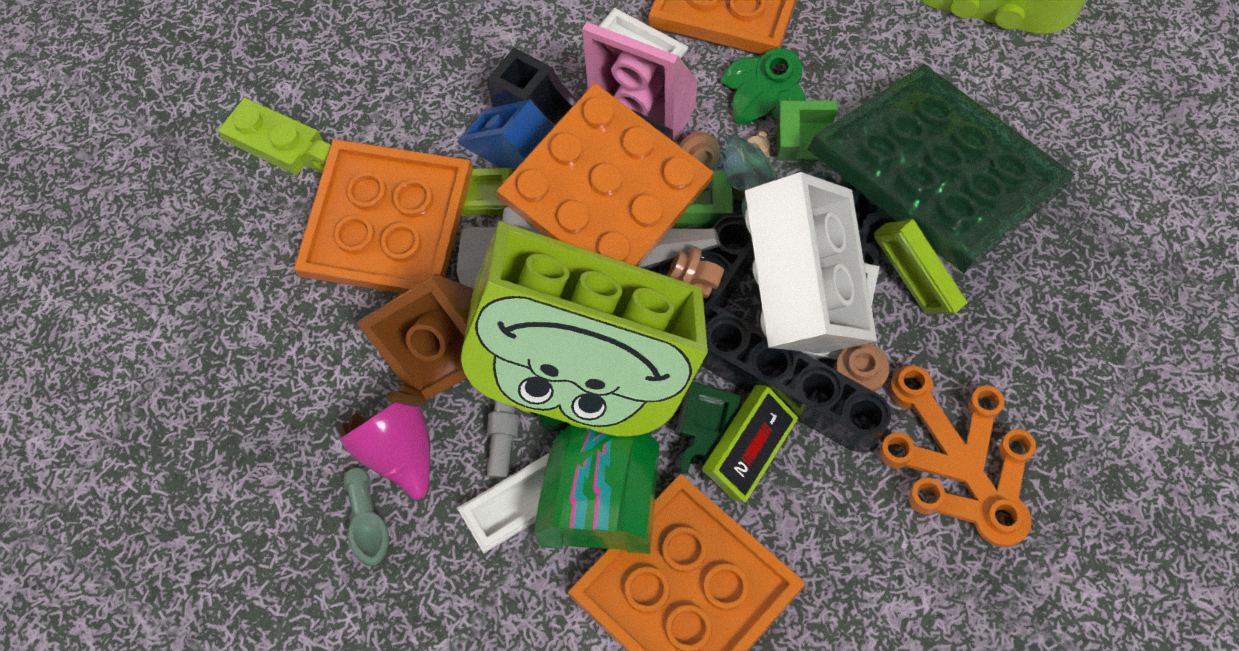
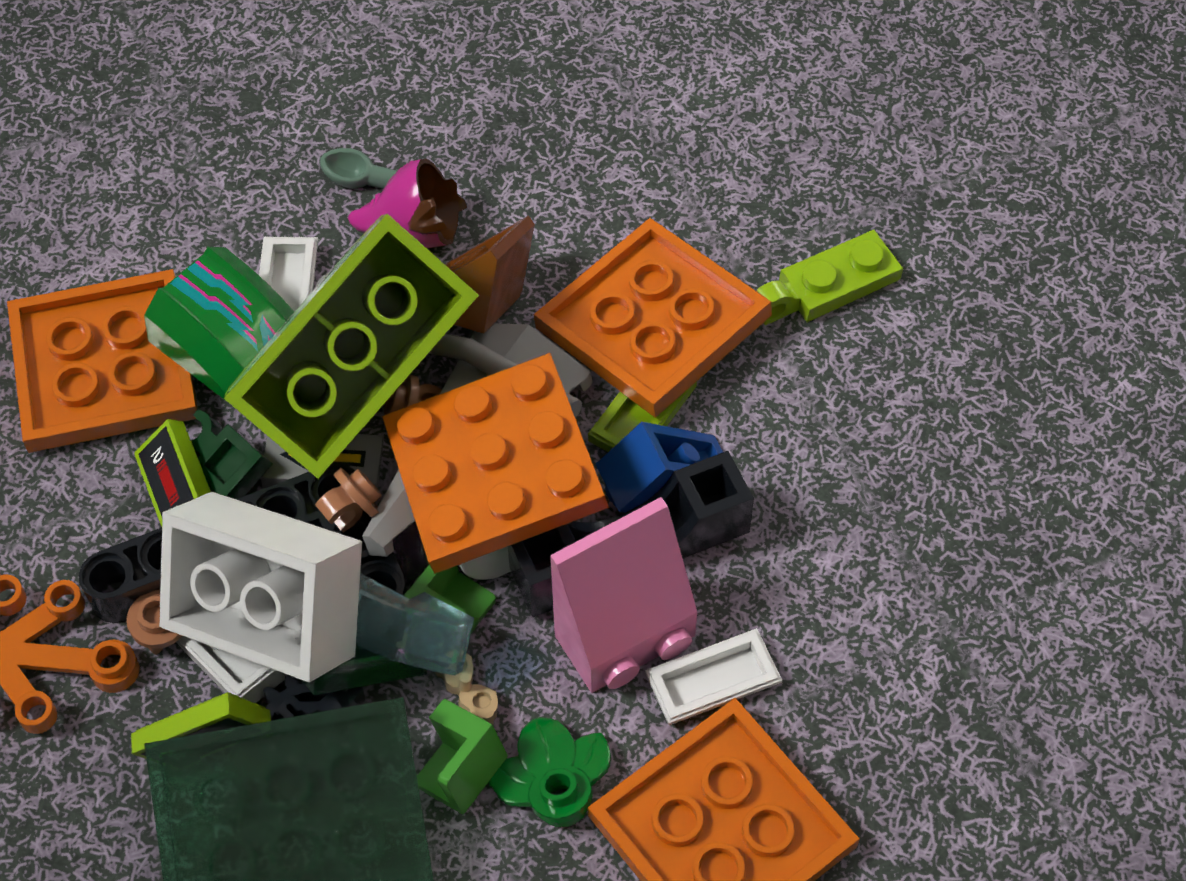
camera: 120 degrees right, 5 degrees down
(702, 147) = (513, 640): nougat plate -> none

